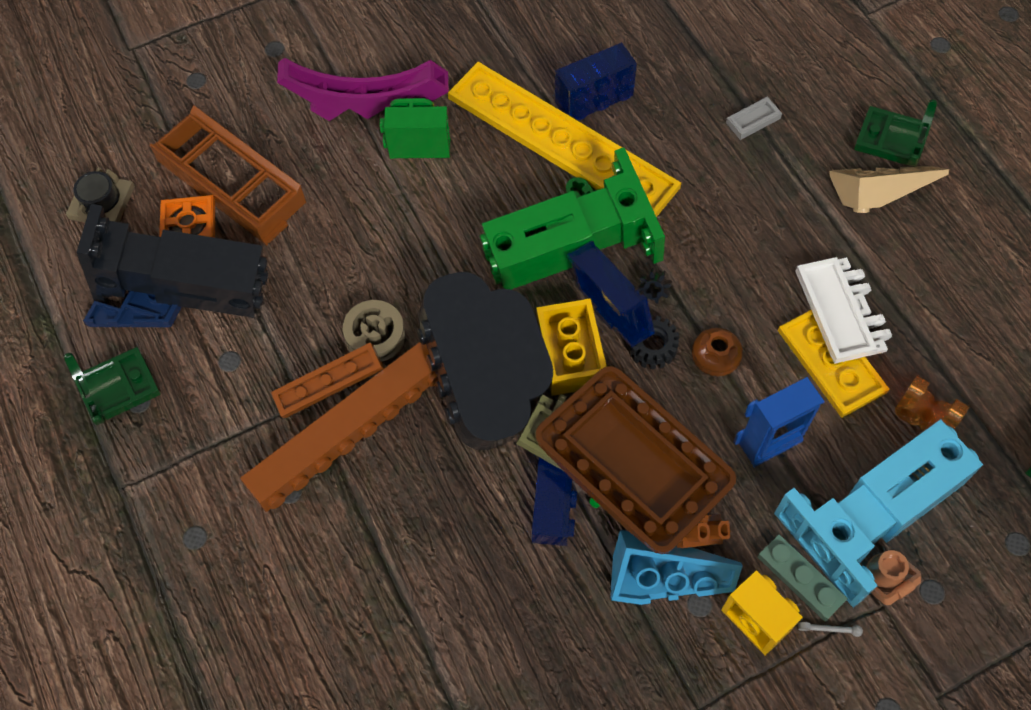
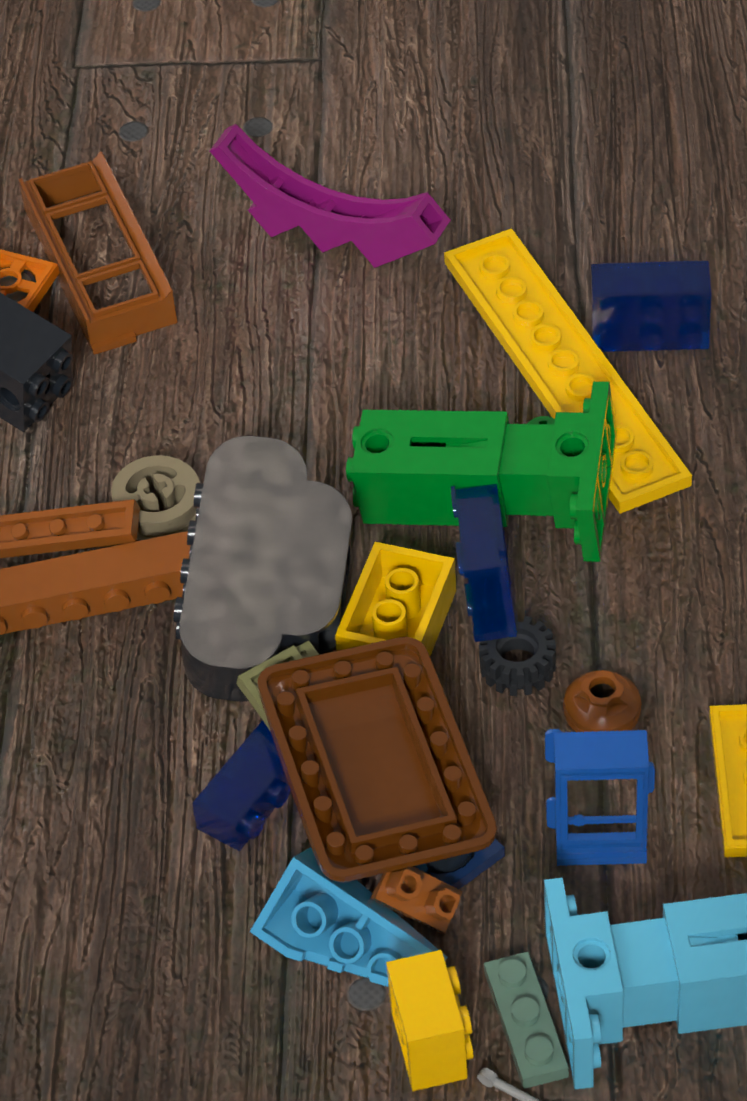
camera: 30 degrees right, 15 degrees down
(416, 129) = (366, 279): green brick -> none
(659, 280) = (564, 586): black gear -> none
(889, 574) = (648, 1064): nougat piece -> none

